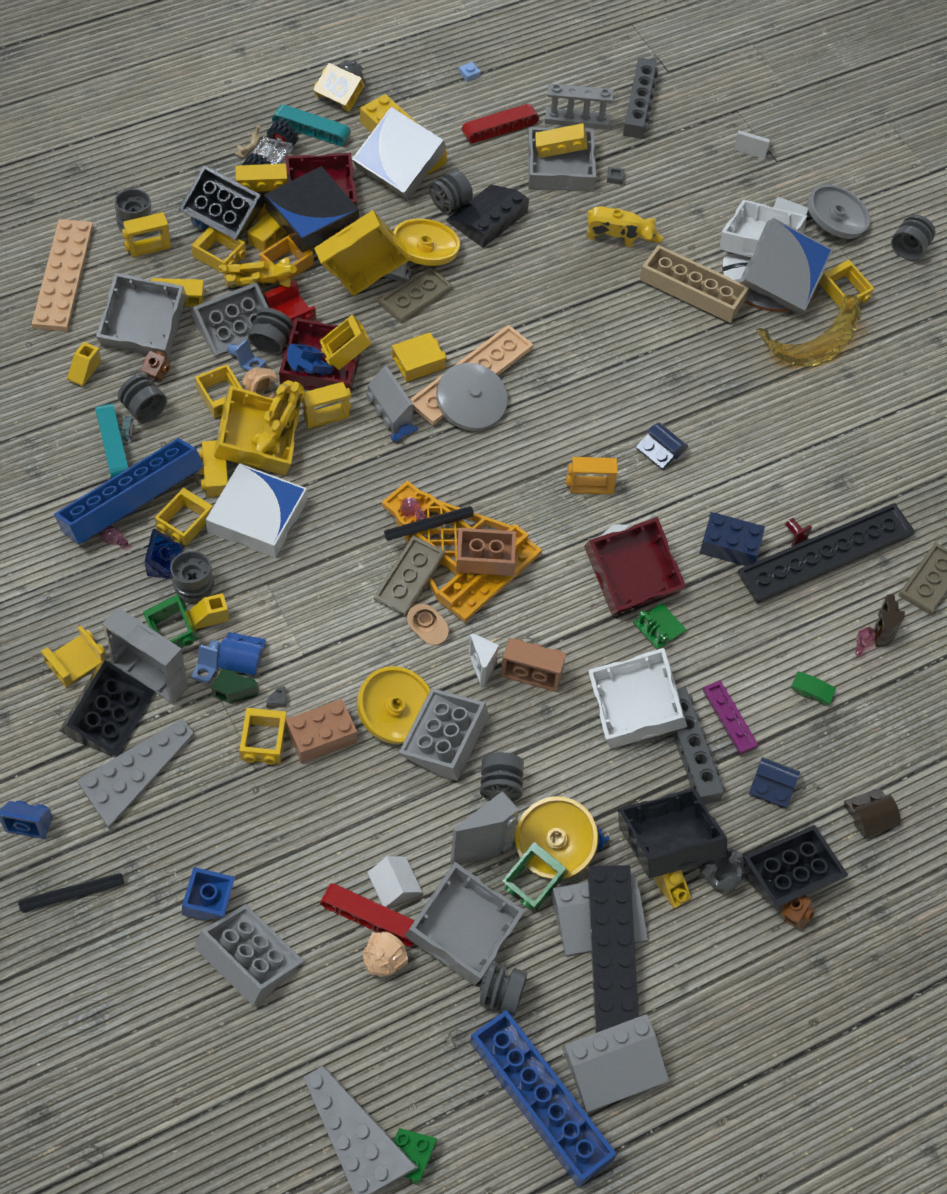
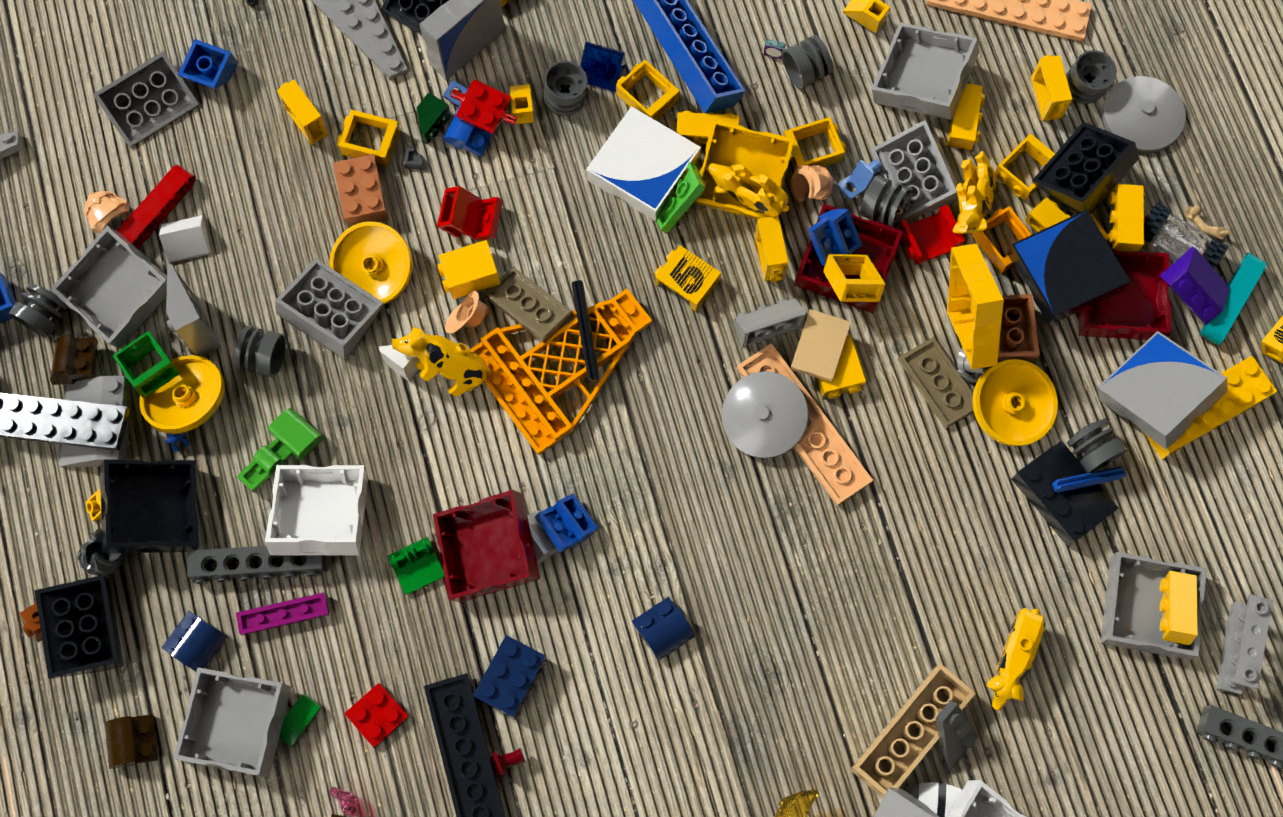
camera: 105 degrees right, 15 degrees up
(111, 439) = (755, 32): teal beam -> none
(113, 535) = (637, 27): clear pink animal -> none
(155, 365) = (855, 81): dark orange brick -> none
(162, 179) = (1144, 113): none -> light grey dish
(166, 609) = (507, 53): green window -> none
(225, 632) = (483, 106): none -> red plate
(248, 793) = (302, 111): none -> yellow window
(288, 466) = (686, 193): none -> bright green wing
(313, 137) = (1197, 285): none -> dark purple slope
(330, 634) = (469, 214): none -> red piece
(359, 465) = (688, 276): none -> yellow panel
(385, 625) = (468, 269): none -> yellow brick
(404, 430) = (732, 335): blue piece -> none
(408, 361) = (820, 345): none -> tan tile
(411, 508) = (608, 316): clear pink animal -> none
(482, 199) = (1088, 479): none -> blue axle
(483, 616) = (445, 358): none -> yellow animal
(486, 551) = (528, 379): nougat brick -> none
(500, 123) = (1227, 539): red beam -> none
(533, 664) = (386, 409): nougat brick -> none
(544, 947) = (73, 359): none -> dark brown brick
(573, 742) = (292, 437): none -> bright green plate
(592, 484) = (624, 528): light orange window -> none
(596, 519) = (566, 523): none -> blue brick
(615, 175) = (1124, 677): dark grey tile -> none
(685, 250) = (955, 734): none -> dark grey wing
(789, 633) = (376, 715): none -> red plate
(833, 729) = (233, 722): none -> light grey tile

